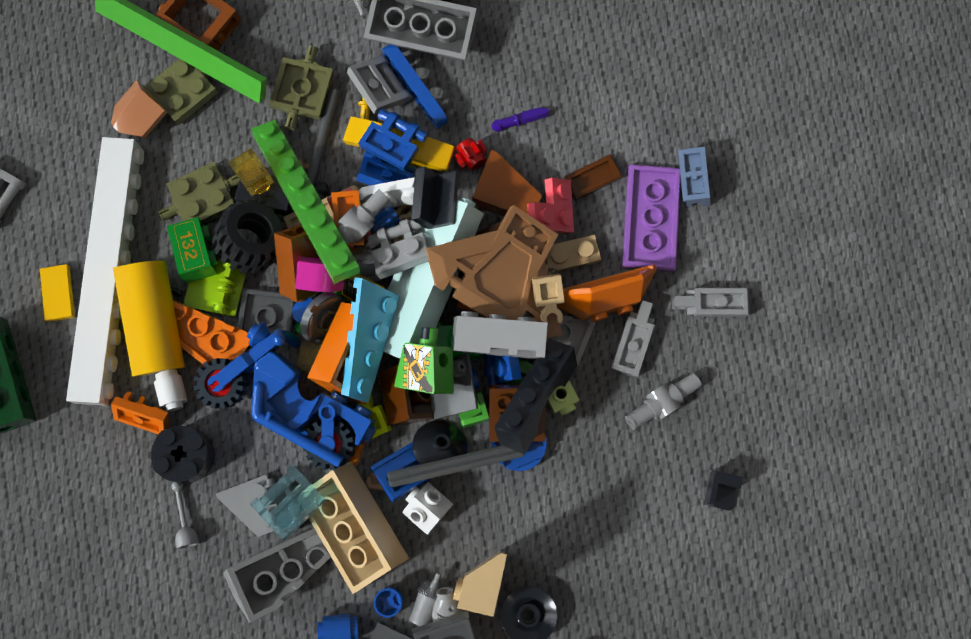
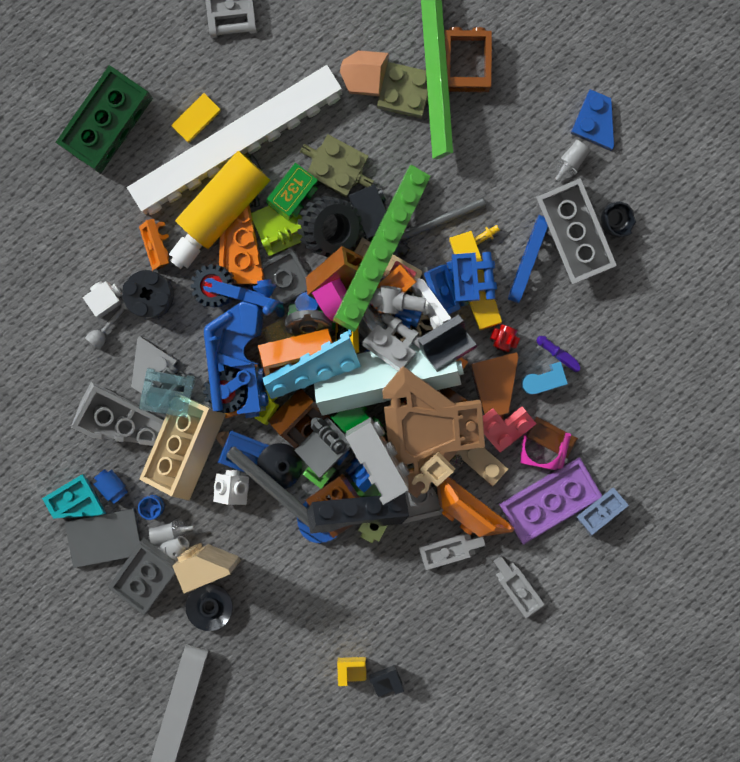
camera: 50 degrees right, 10 degrees up
(153, 502) = (103, 298): none -> white brick
(251, 172) = (375, 195): clear yellow brick -> none
(301, 88) = (467, 177): olive plate -> none
(374, 87) = (505, 230): light grey plate -> none
(426, 365) = (322, 423): torso -> none
(534, 153) = (538, 383): none -> dark azure leg
(620, 191) = (557, 463): none -> dark pink helmet
(663, 401) = (420, 599): light grey pin -> none
(687, 517) = (351, 670): none -> yellow panel

